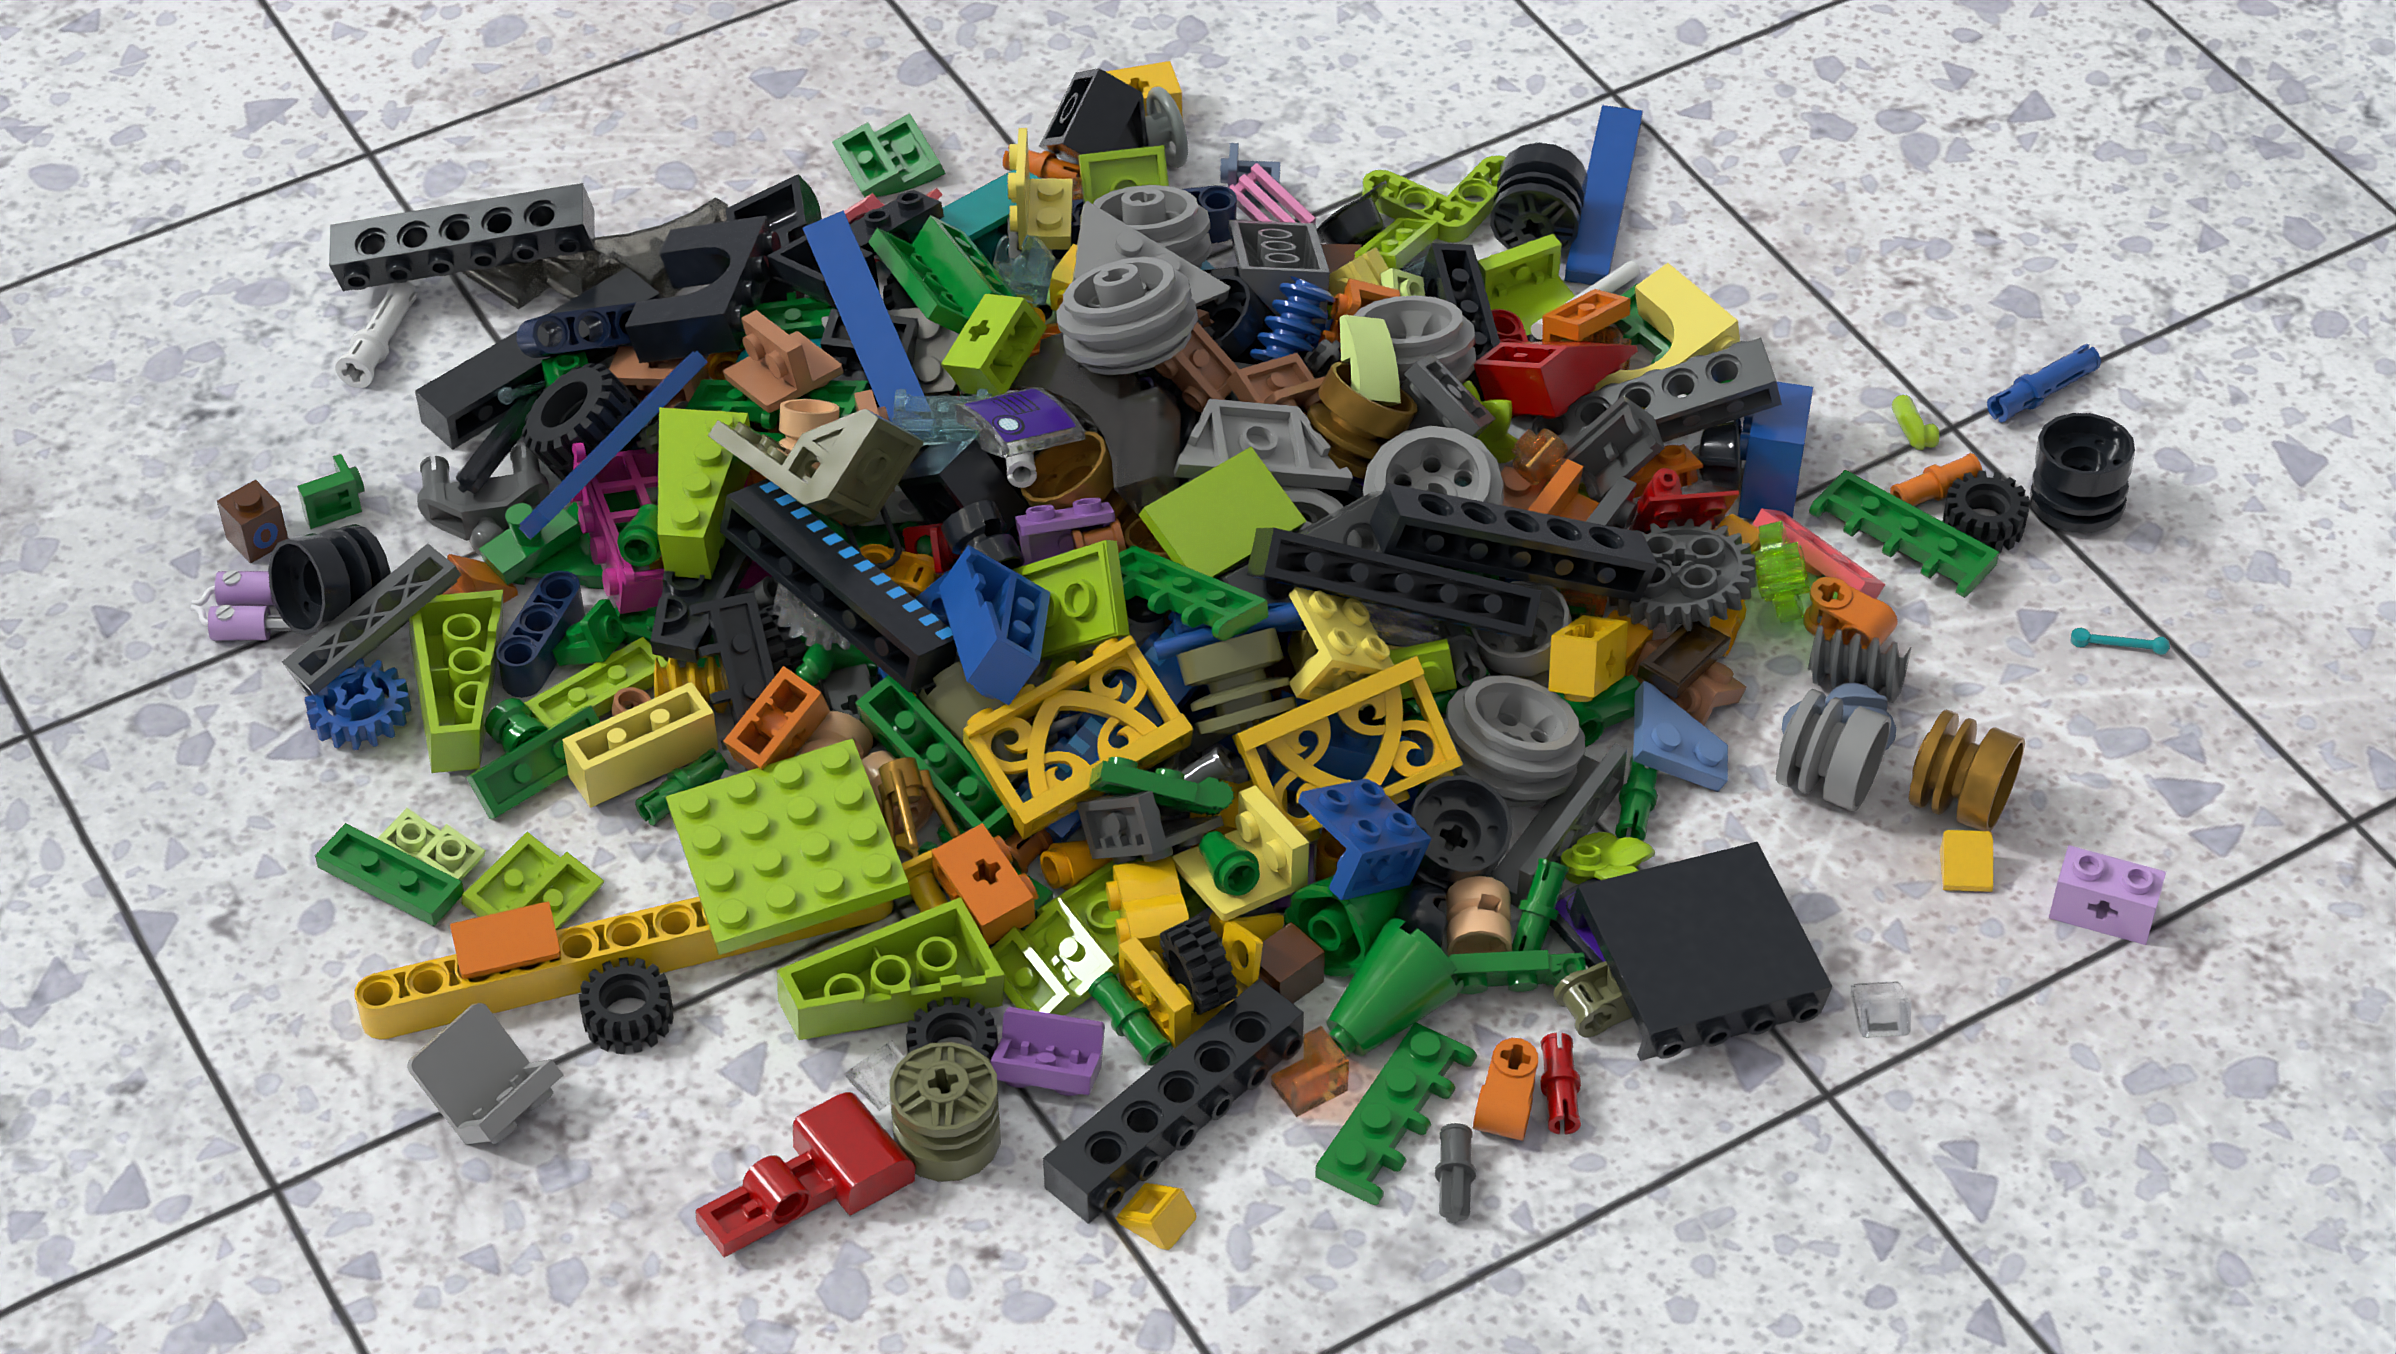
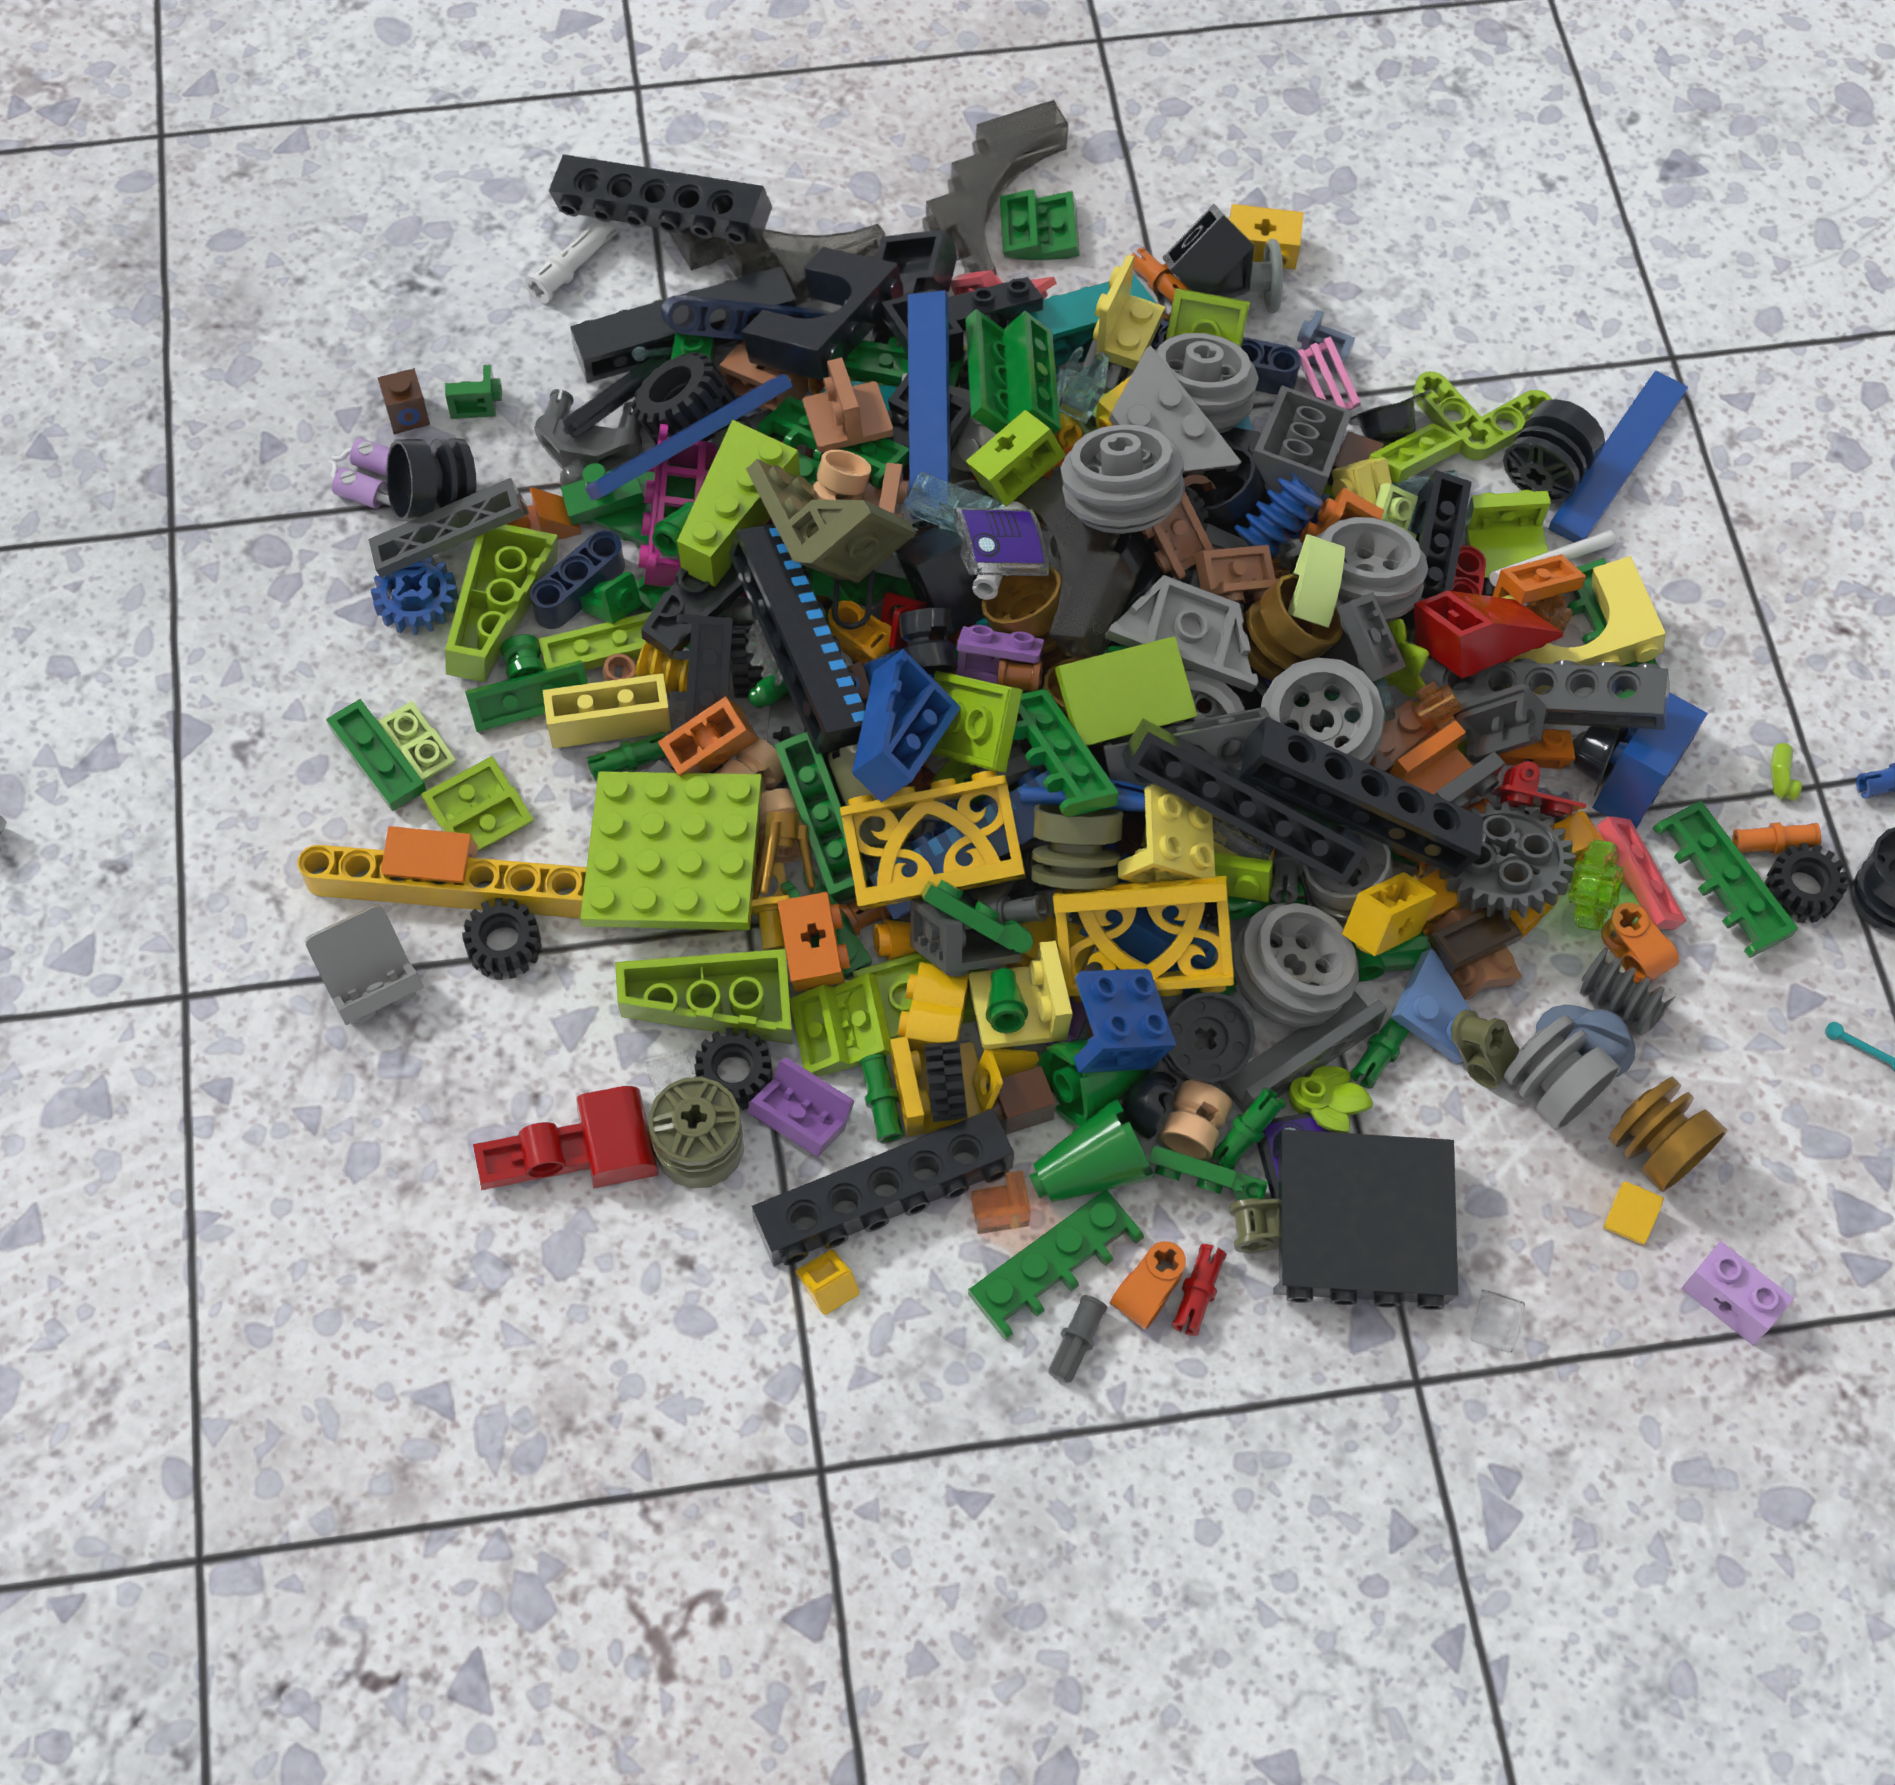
camera: 20 degrees right, 15 degrees up
(812, 105) = (1001, 153): none -> clear smoke arch
(1743, 756) = (1484, 1047): none -> olive piece

